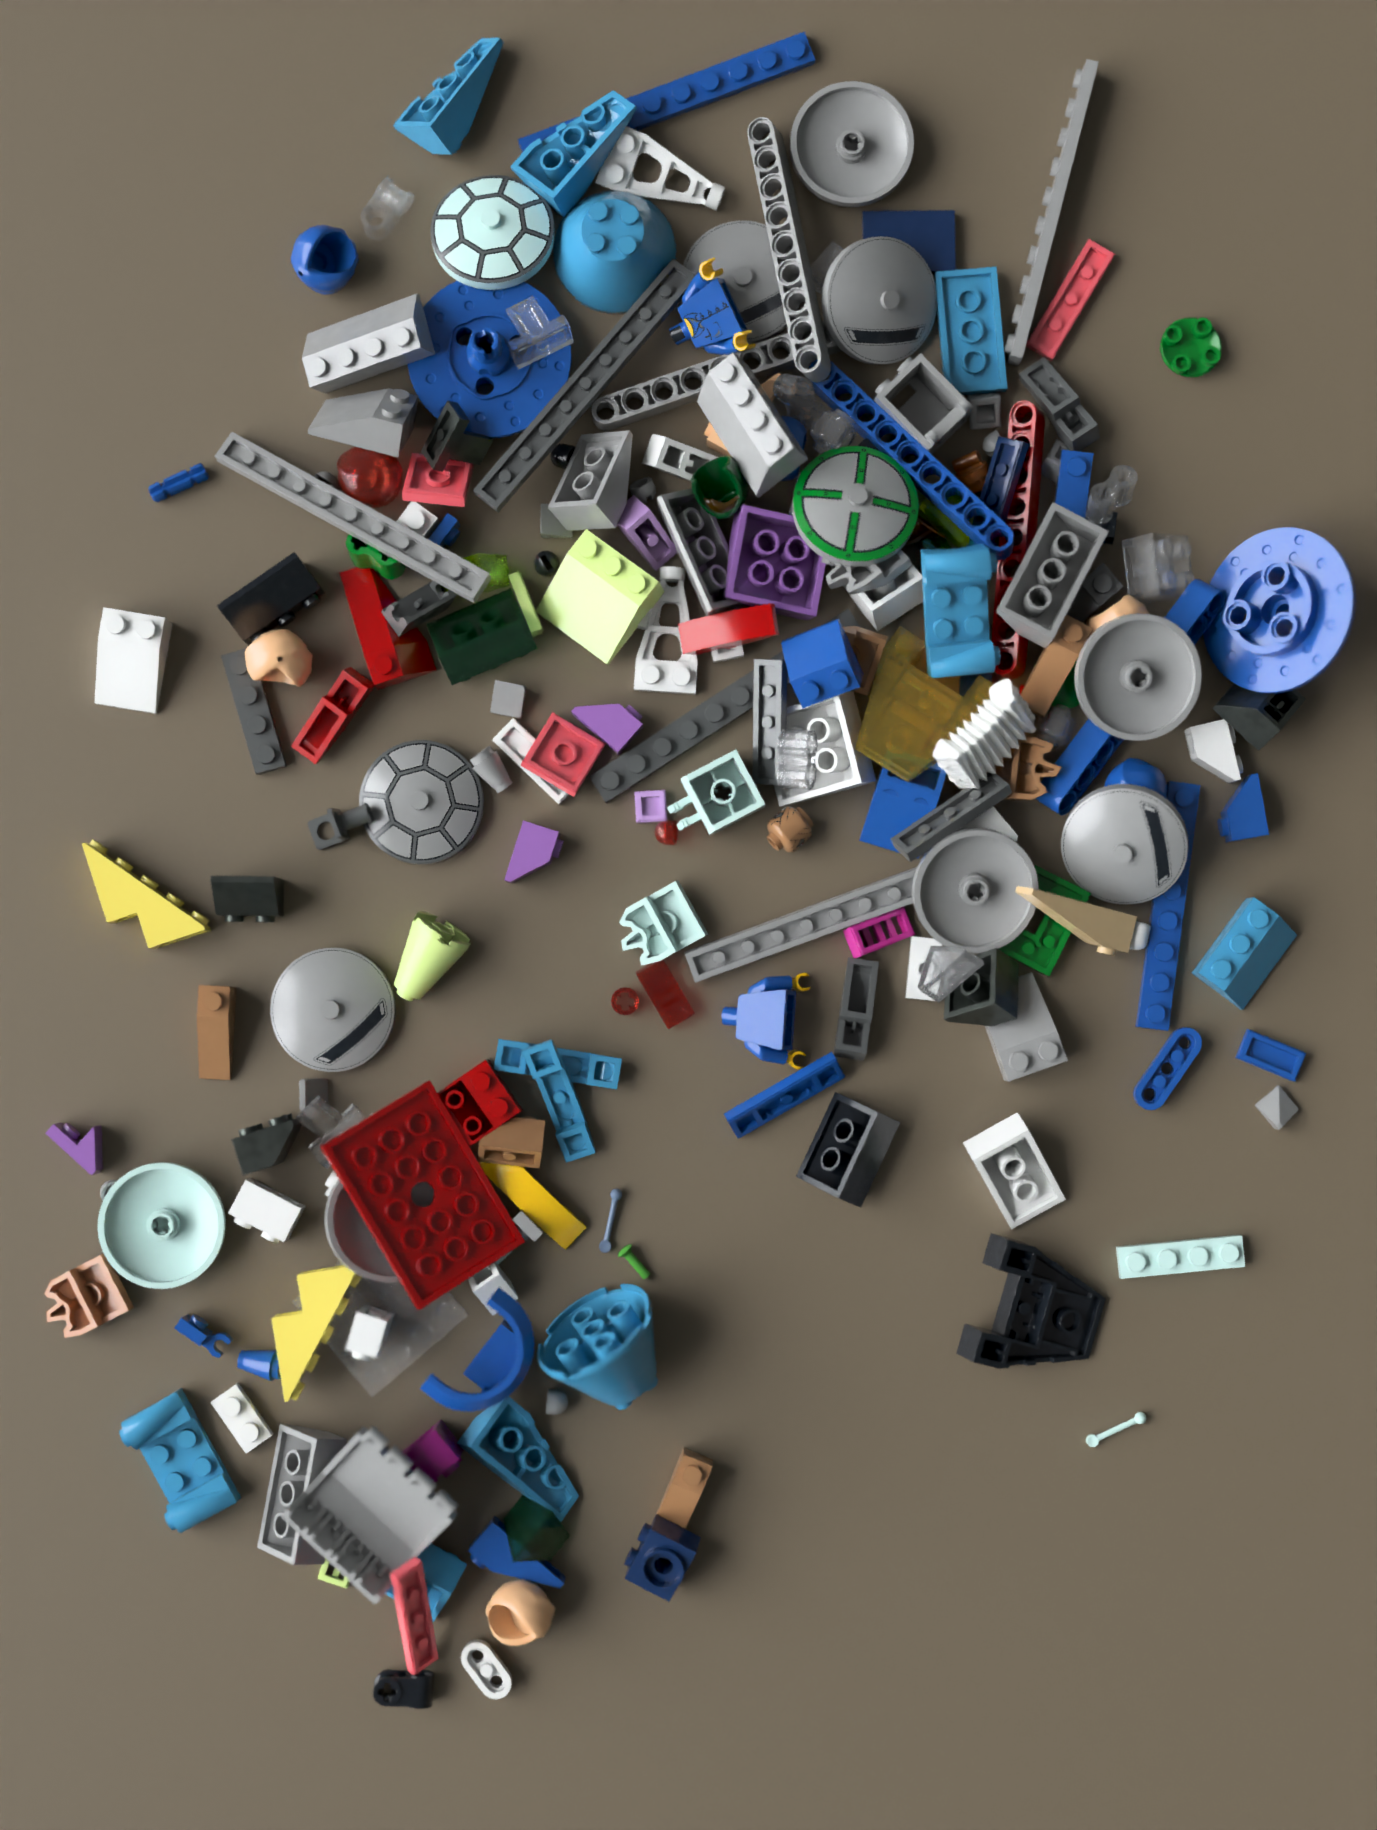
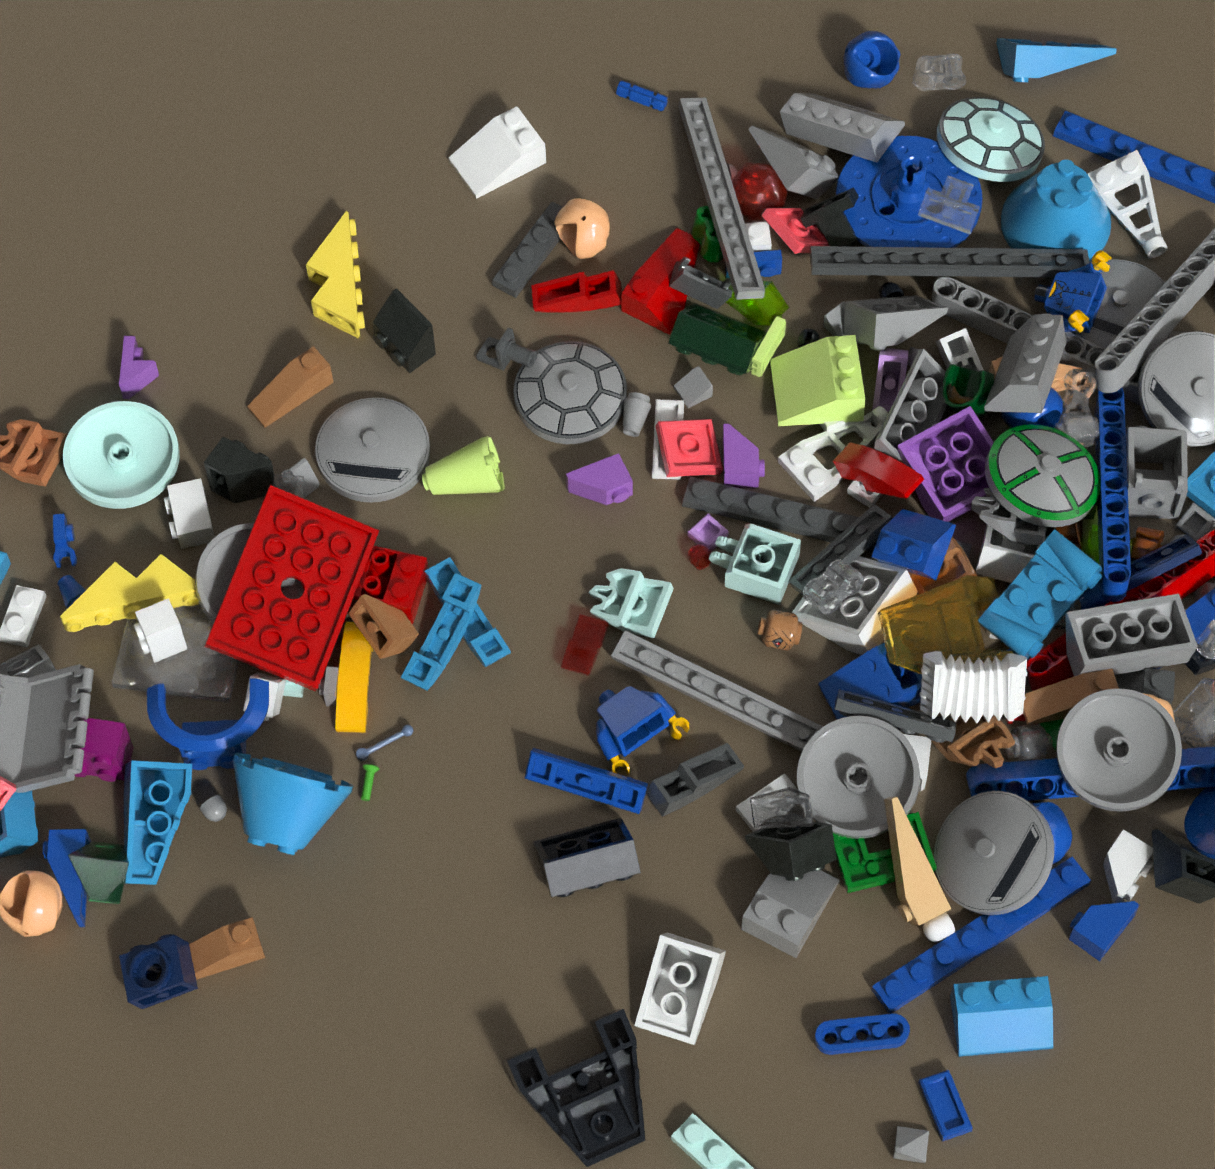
camera: 50 degrees right, 25 degrees down
(272, 599) = (626, 193): black slope -> none
(570, 158) = (1092, 143): dark azure wedge -> none
(618, 1008) = (554, 634): clear red bush -> none
(854, 940) = (762, 760): dark pink slope -> none

